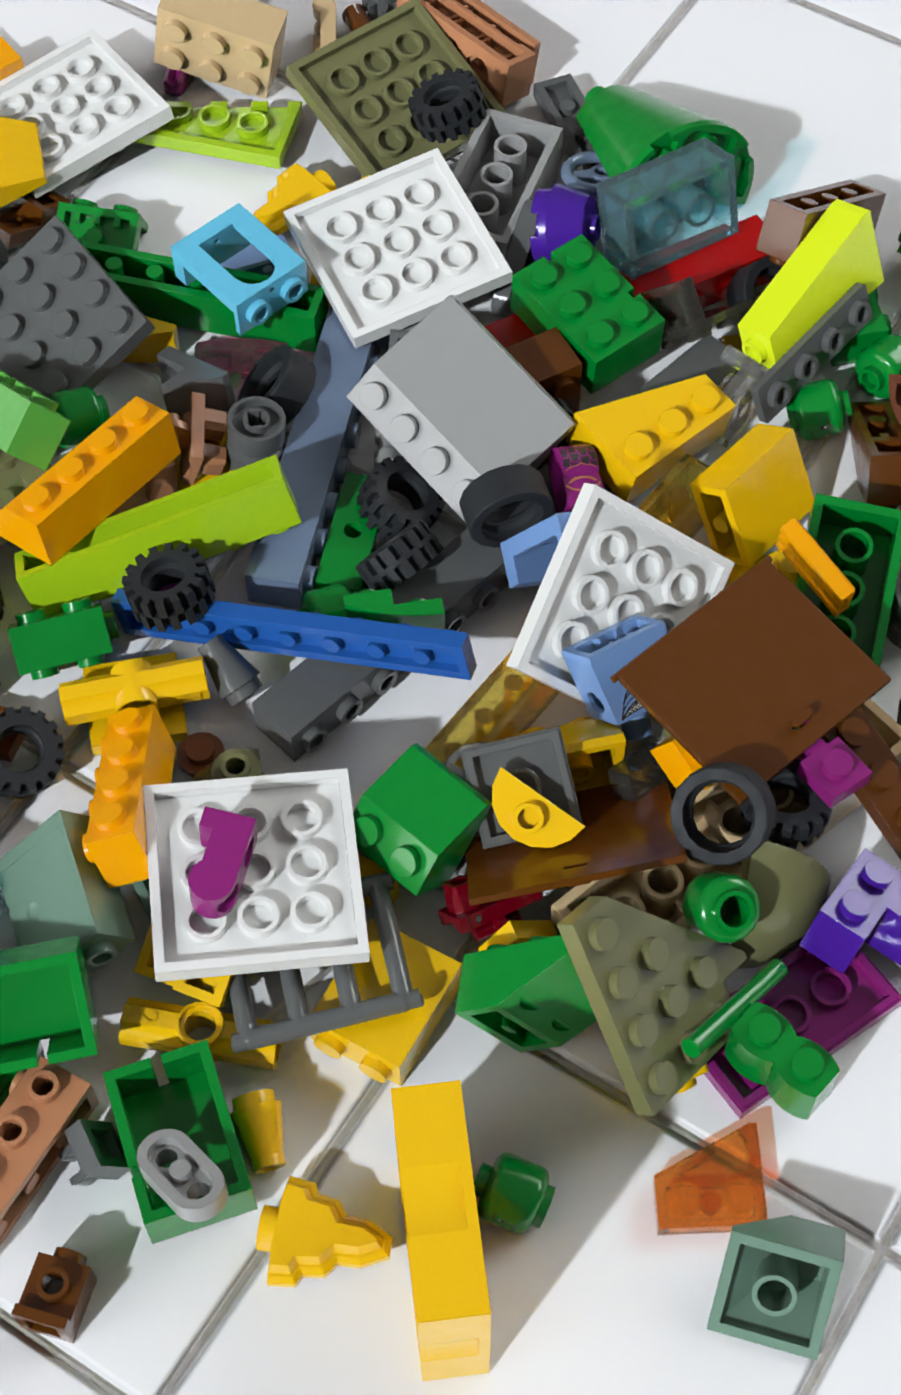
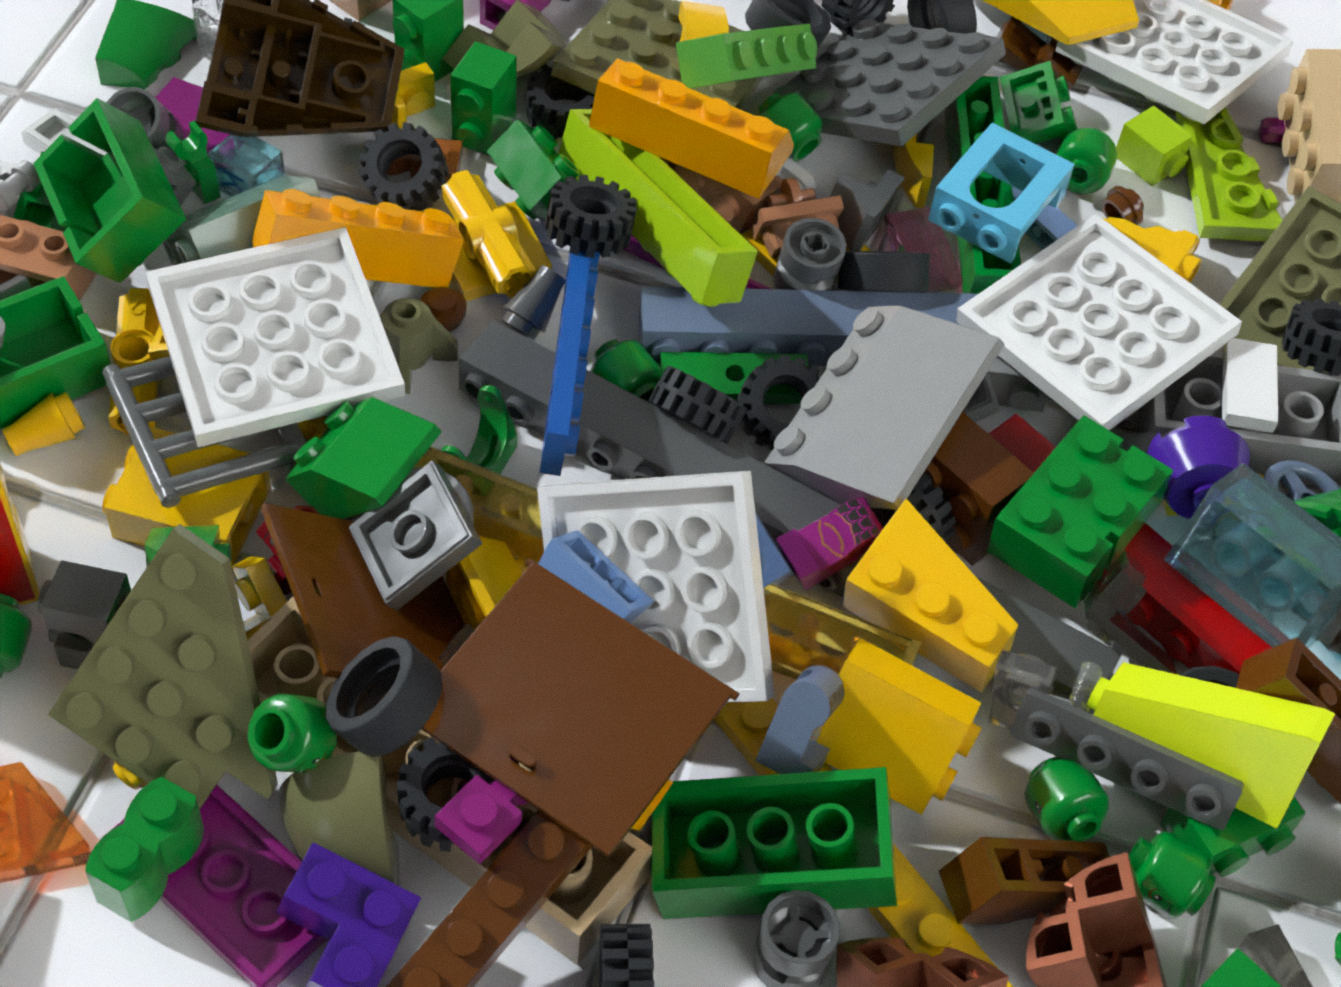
camera: 70 degrees right, 5 degrees down
(174, 164) = (1153, 146): none -> lime brick
(175, 214) = (1093, 158): none -> green head
(221, 873) = (260, 290): magenta leg -> none
(233, 197) = (1123, 204): none -> reddish brown plate
(363, 731) = (494, 429): none -> green helmet
(379, 606) = (613, 416): green slope -> none
(489, 169) = (1250, 385): none -> white tile
(500, 488) = (778, 466): black tyre -> none
(529, 815) = (379, 542): yellow plate -> none
(530, 1087) = (80, 607): none -> dark grey brick
(734, 1008) = (186, 777): green bar -> none
(748, 538) = (797, 723): none -> sand blue leg
(815, 567) = (771, 775): light orange tile -> none

